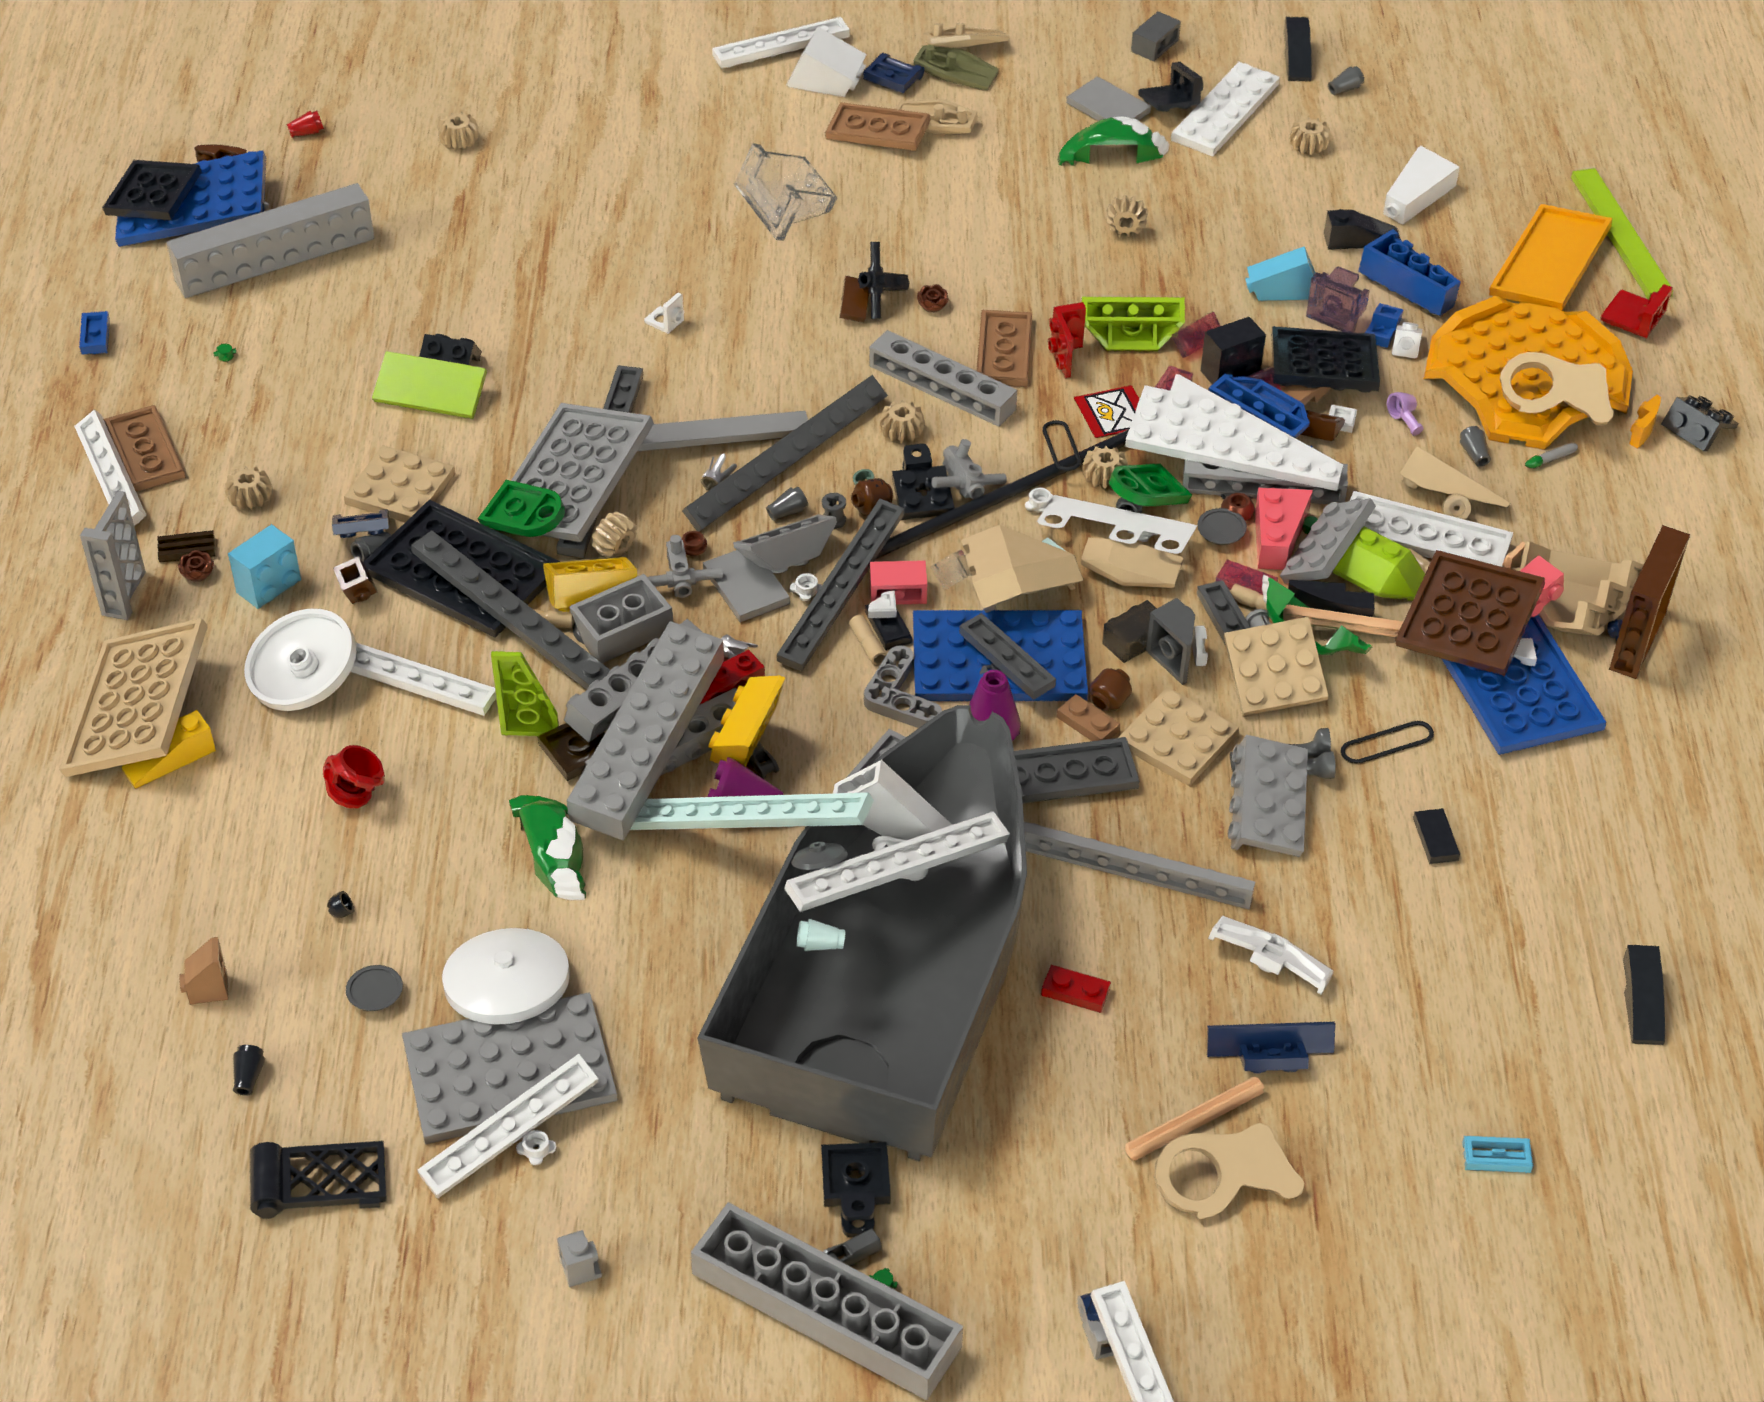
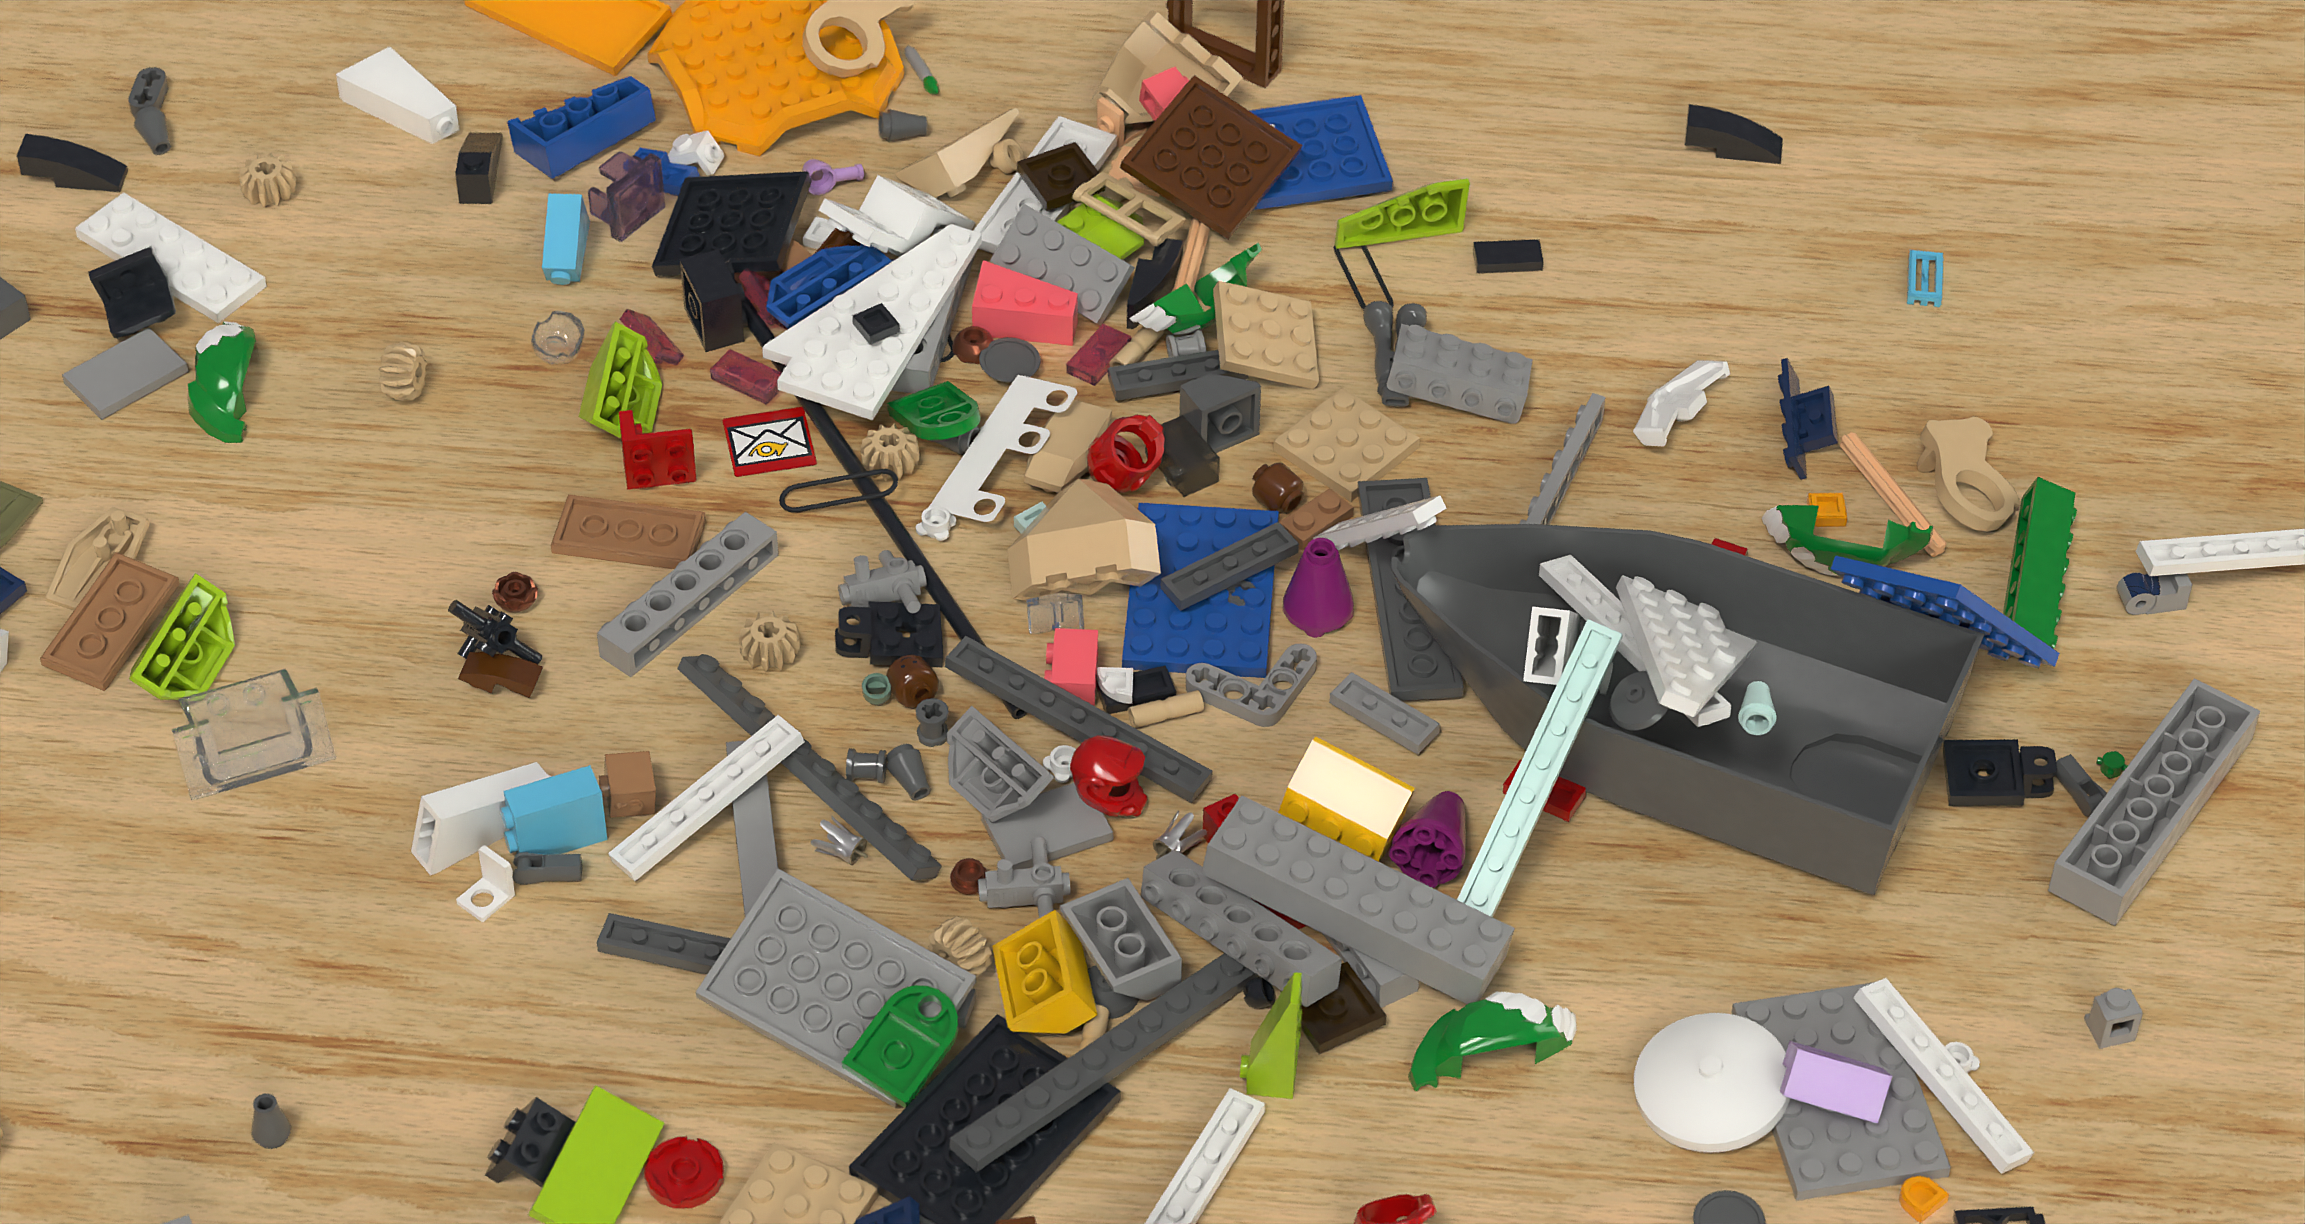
camera: 85 degrees left, 0 degrees up
(399, 1120) = (1921, 1197): none -> light orange tile
(434, 431) = (684, 1172): none -> red tile
(467, 244) = (269, 1123): none -> dark grey cone
(486, 1036) = (1834, 1082): none -> piece
(686, 342) = (546, 868): none -> dark grey bar
(717, 328) = (555, 814): none -> medium azure brick
(721, 298) = (465, 817): none -> white slope
(744, 399) = (706, 798): none -> white plate
(758, 366) = (628, 784): none -> medium nougat head
(783, 590) = (1106, 763): none -> red helmet
(790, 477) = (866, 765): none -> dark grey bush
(850, 154) = (187, 644): none -> lime wedge
(897, 890) = (1681, 644): none -> white wing
(974, 1094) = (1948, 603): none -> blue plate
(1031, 717) = (1384, 523): none -> white plate
(1106, 1221) = (2040, 559): none -> green brick
(1108, 1048) = (1796, 526): none -> green animal
(1116, 588) = (1117, 461): none -> red helmet
(1167, 1069) = (1830, 510): none -> light orange tile
(1182, 285) = (558, 338): none -> clear hair
(1210, 426) = (876, 323): none -> black tile
(1341, 433) = (894, 217): none -> white bracket
(1370, 590) = (1137, 200): none -> tan window
(1387, 75) = (149, 85): none -> dark grey beam
(1429, 530) = (1057, 174): none -> dark brown plate
(1463, 765) = (1415, 214): none -> lime wedge

